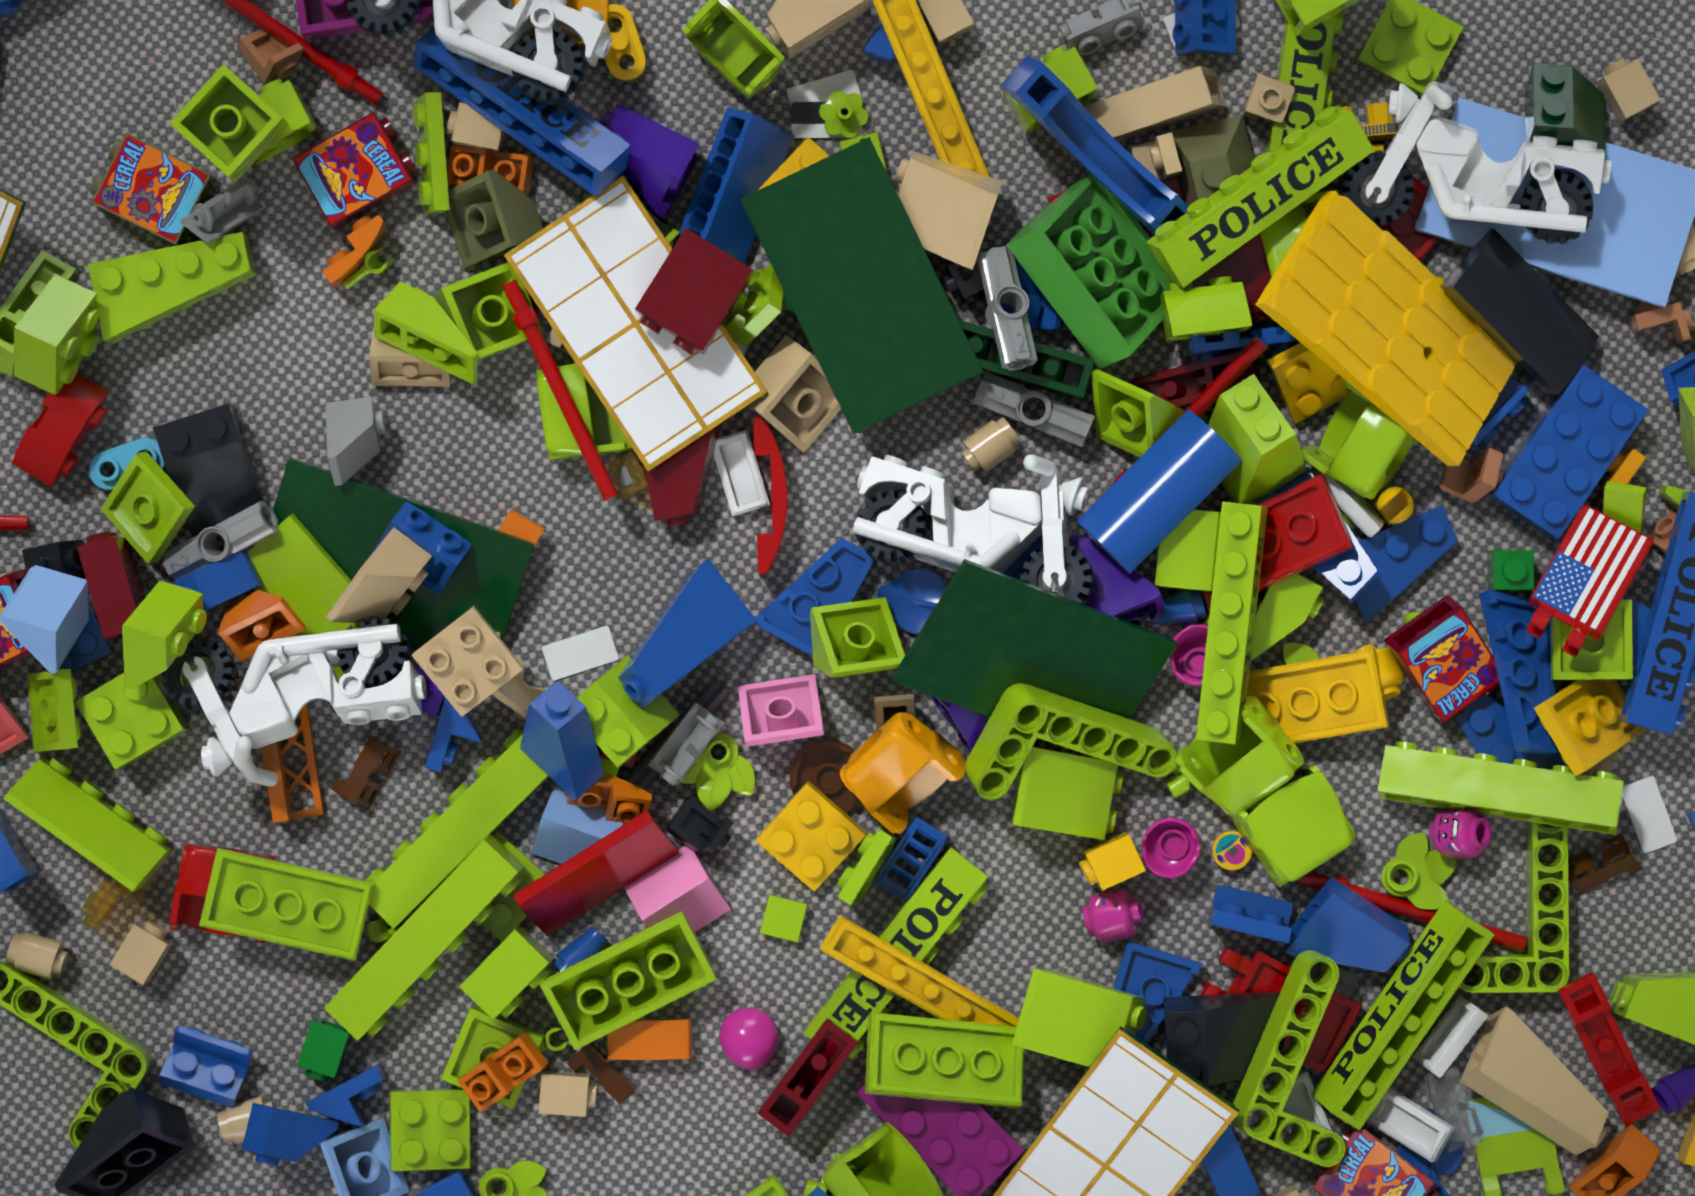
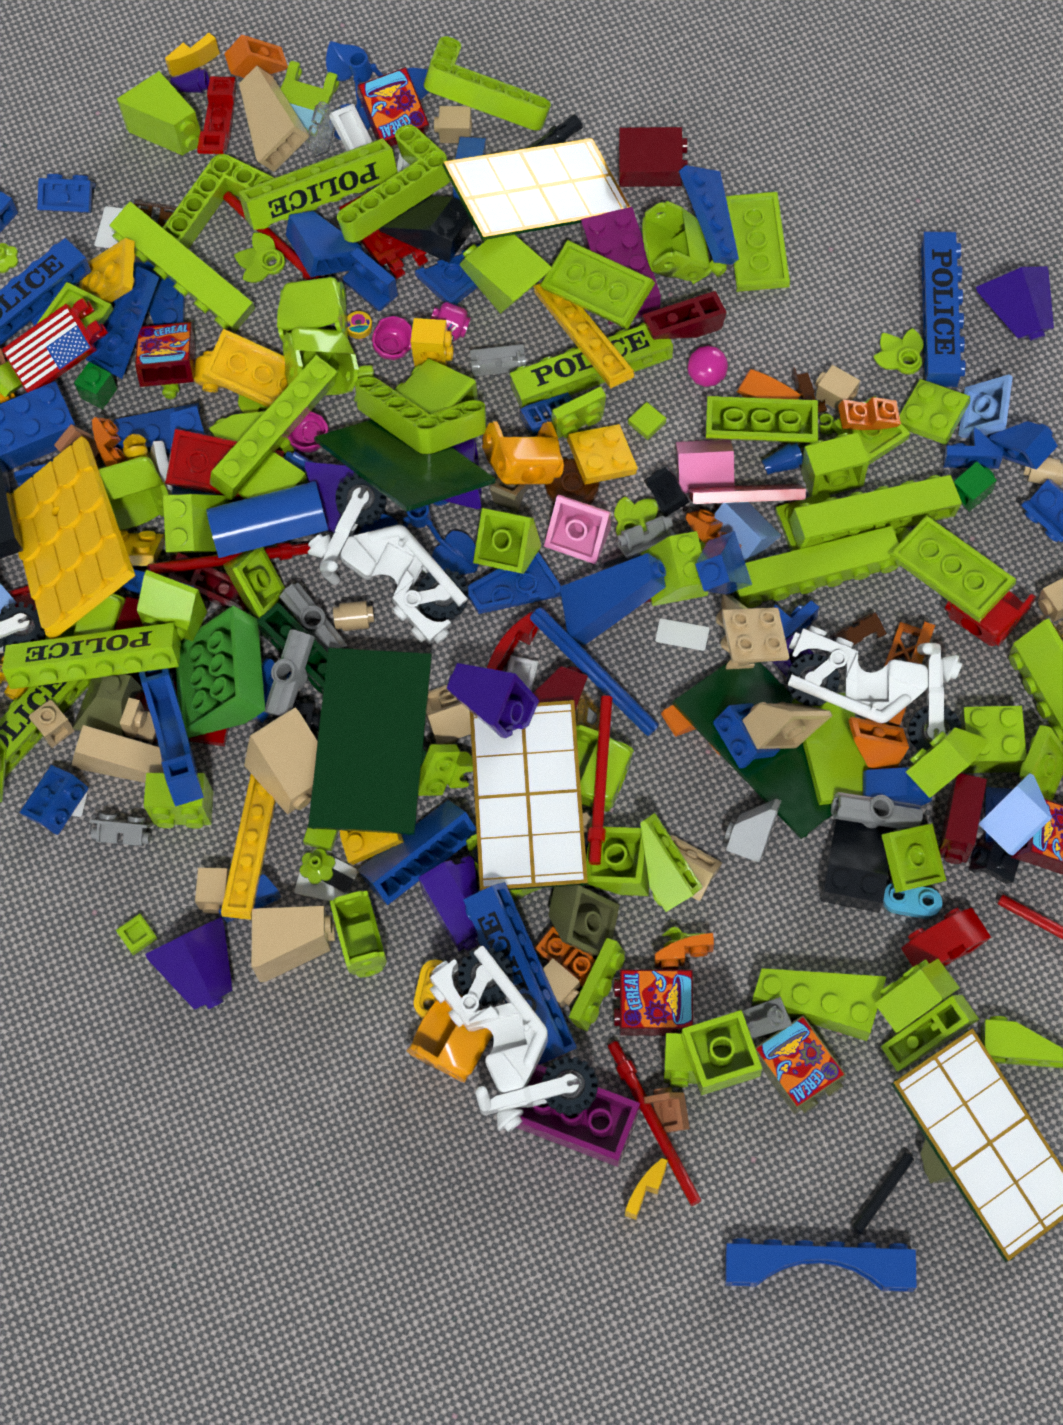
camera: 145 degrees left, 20 degrees down
(653, 533) = (593, 671): none -> blue axle
(693, 292) = (478, 786): dark red brick -> none
(738, 403) = (494, 697): none -> dark purple slope
(1011, 902) = (497, 359): none -> light grey hinge
(1447, 503) = (106, 438): none -> orange slope
(1450, 1036) = (298, 160): white tile -> none
(1460, 832) = (222, 261): dark pink head -> none

